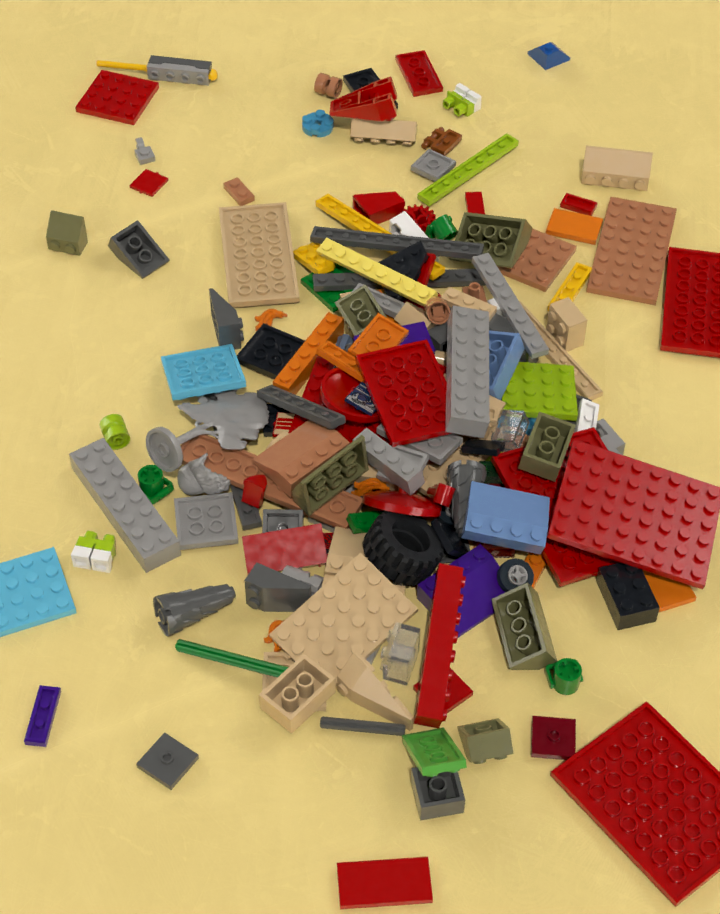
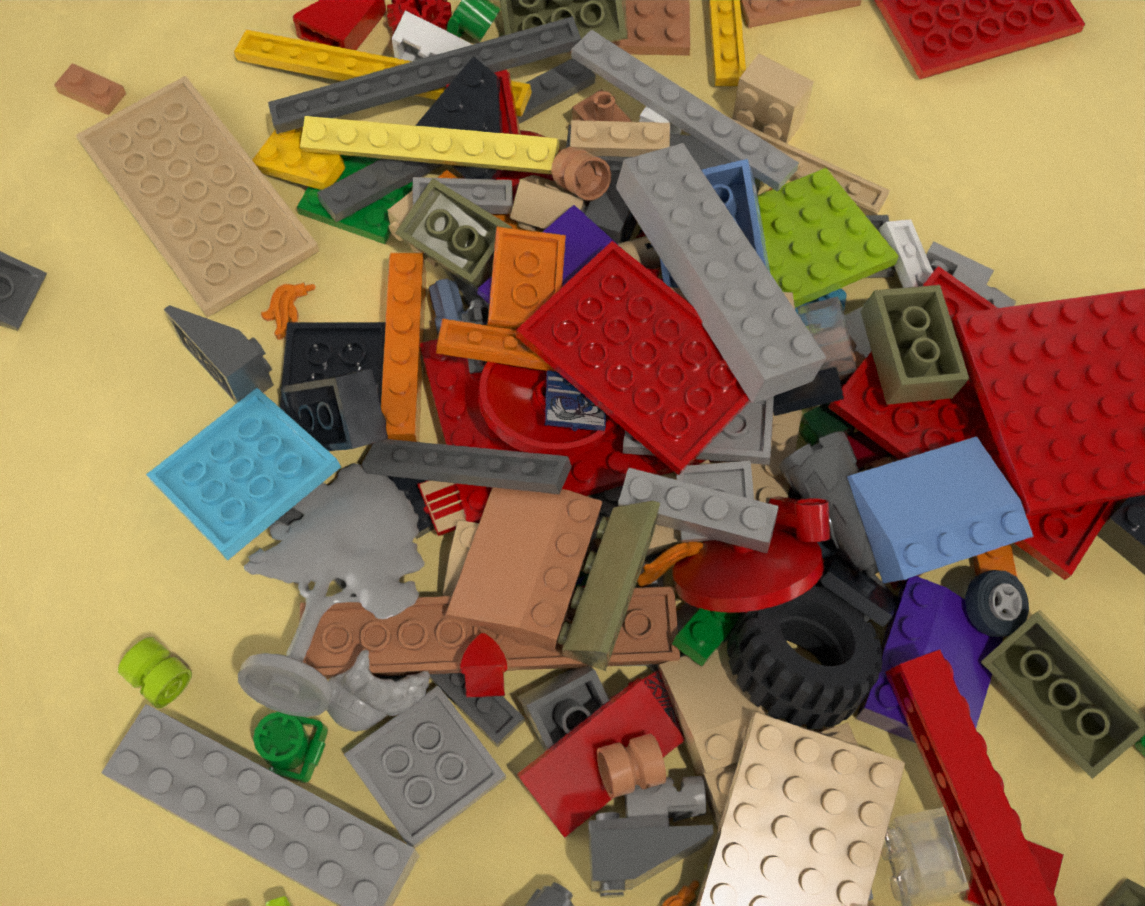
camera: 30 degrees left, 15 degrees up
(260, 361) = (338, 409): none -> black slope
(293, 553) = (631, 766): none -> nougat wheel

